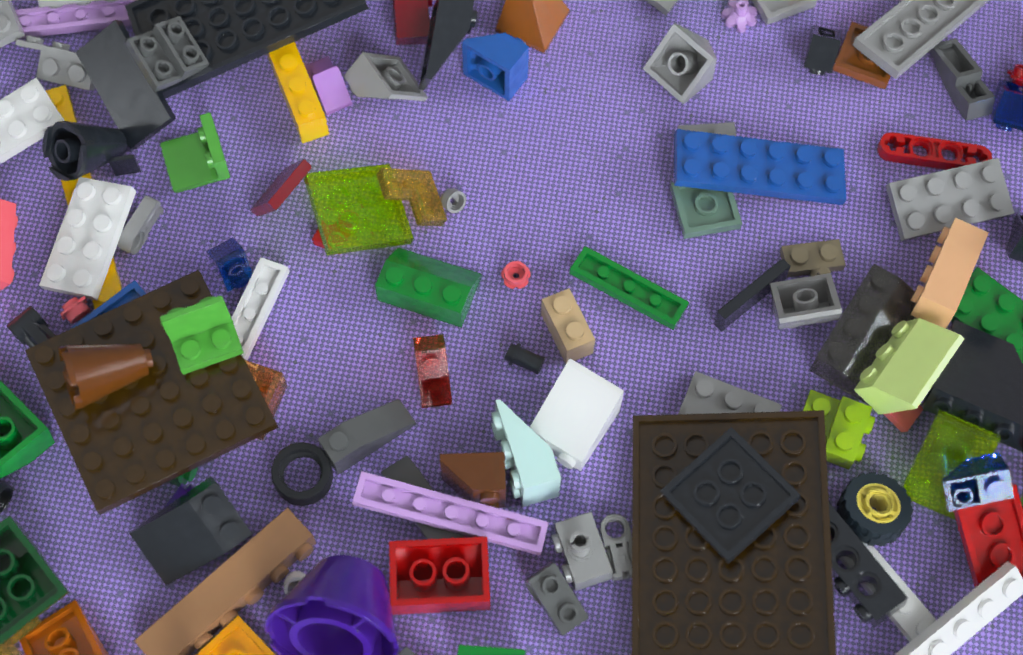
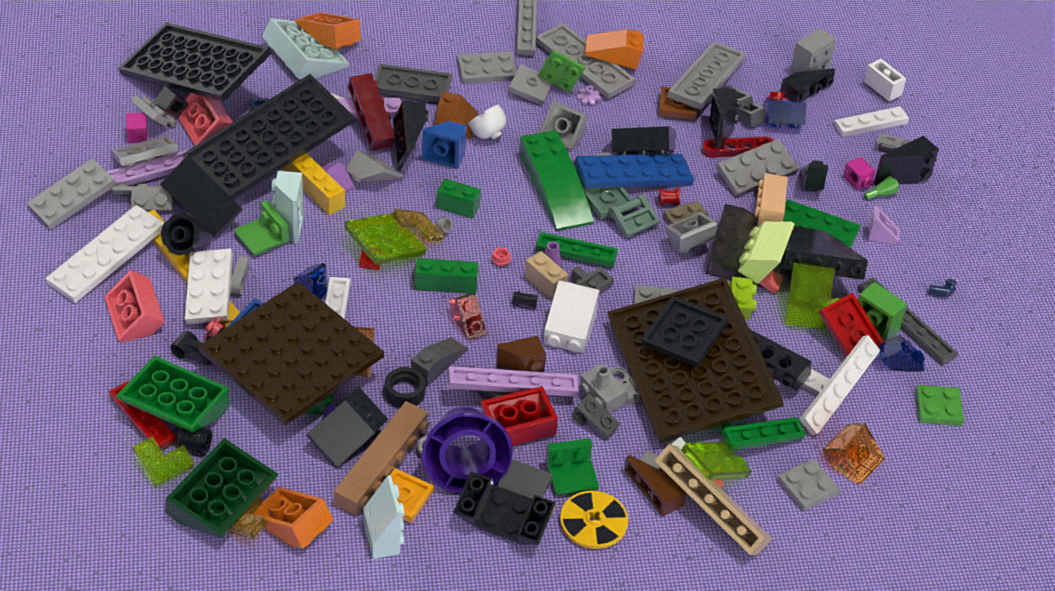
camera: 20 degrees left, 20 degrees down
(101, 369) = (259, 337): reddish brown cone -> none
(124, 165) = (215, 243): black piece -> none
(167, 54) = (228, 170): dark grey slope -> none
(202, 334) = (318, 305): bright green bracket -> none
(238, 126) = (289, 201): none -> light aqua slope
(281, 188) = (329, 235): dark red tile -> none
(487, 160) = (458, 198): none -> green brick
(530, 459) = (556, 340): light aqua slope -> none
(573, 39) = (489, 123): none -> white cylinder
(587, 295) = (553, 252): none -> medium lavender cone
(628, 353) = (597, 279): none -> dark grey hinge
(639, 158) = (555, 179): none -> green slope
(734, 257) = (636, 221): none -> sand green plate
(751, 295) = (654, 239): black tile -> none
(791, 117) = (643, 140): none -> black wedge
(798, 223) = (669, 196): none -> red bush
(822, 50) = (649, 104): black slope -> none
(886, 497) = (776, 327): black wheel -> none
(926, 98) = (723, 114): none -> black slope
(977, 482) = (830, 292): clear blue slope -> none

